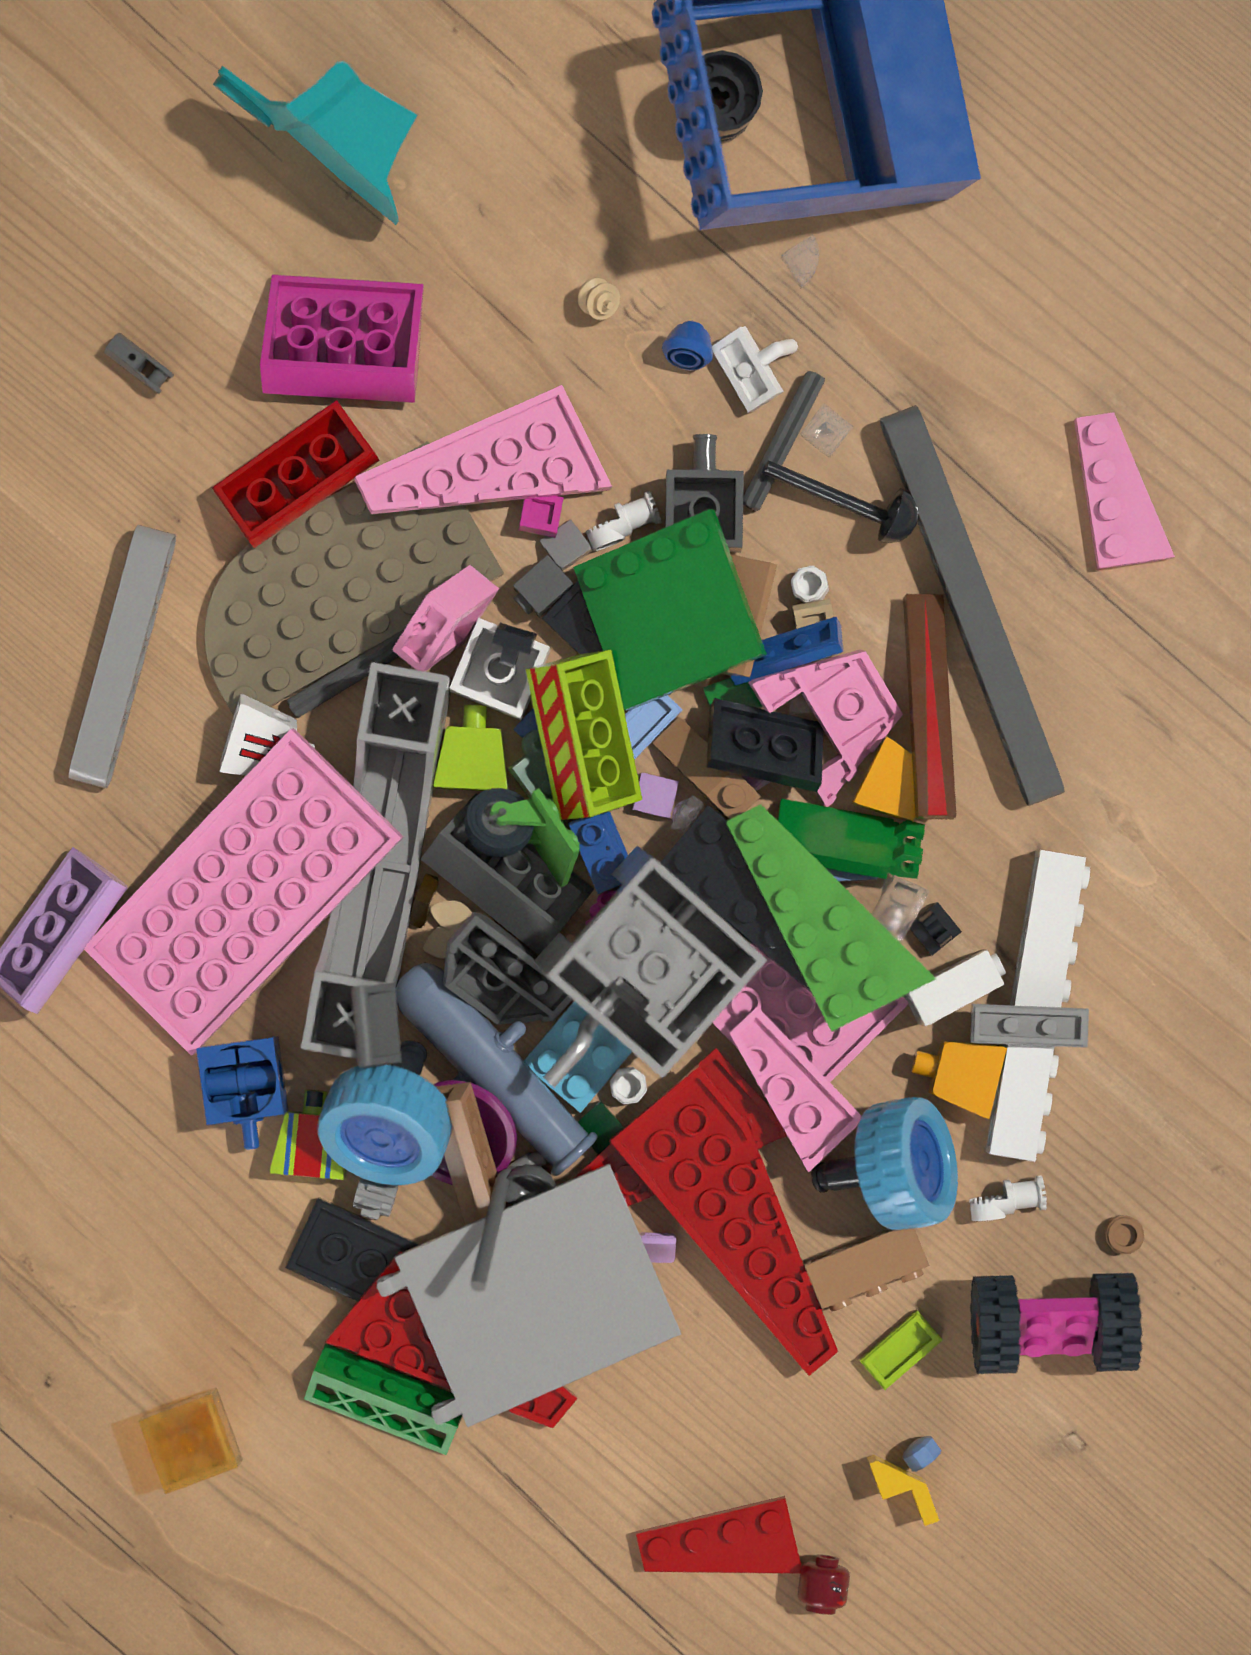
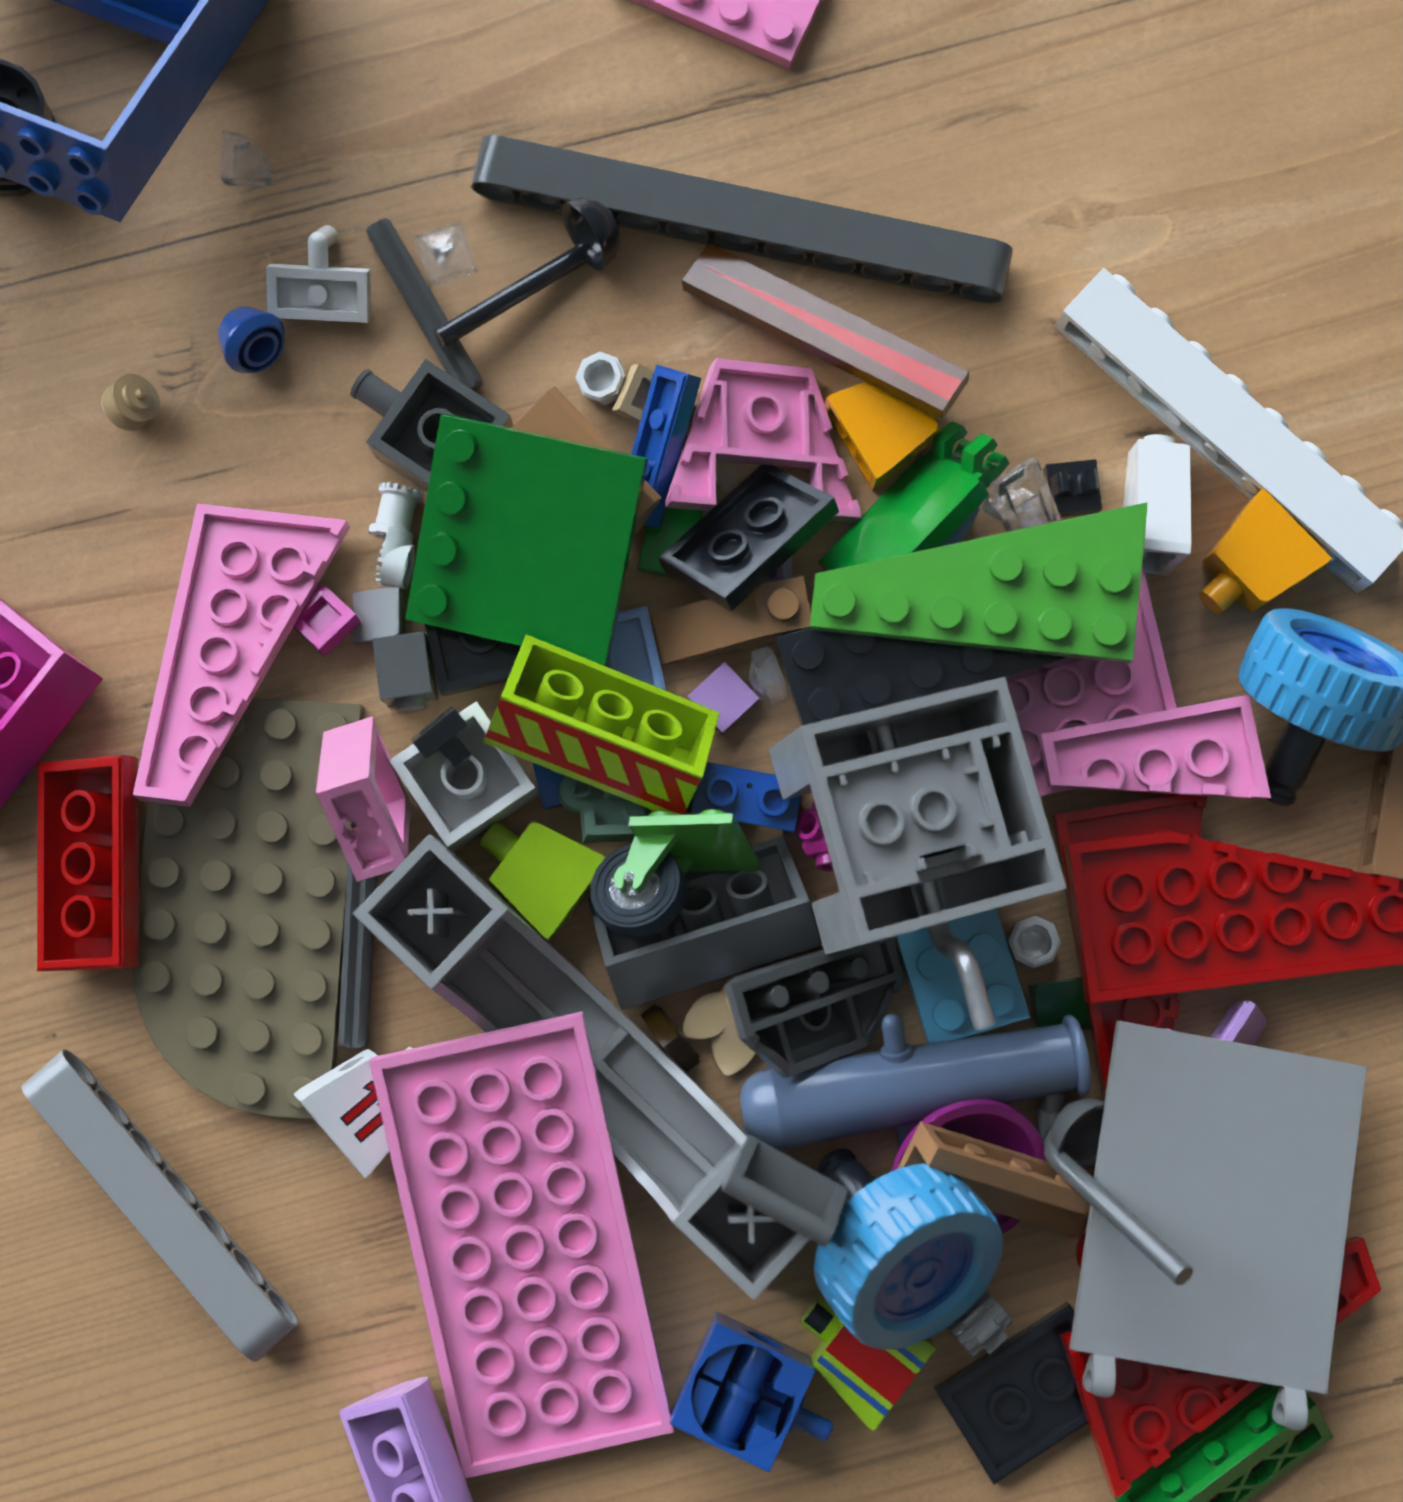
camera: 45 degrees left, 5 degrees down
(1029, 1025) = (1255, 445): light grey tile -> none

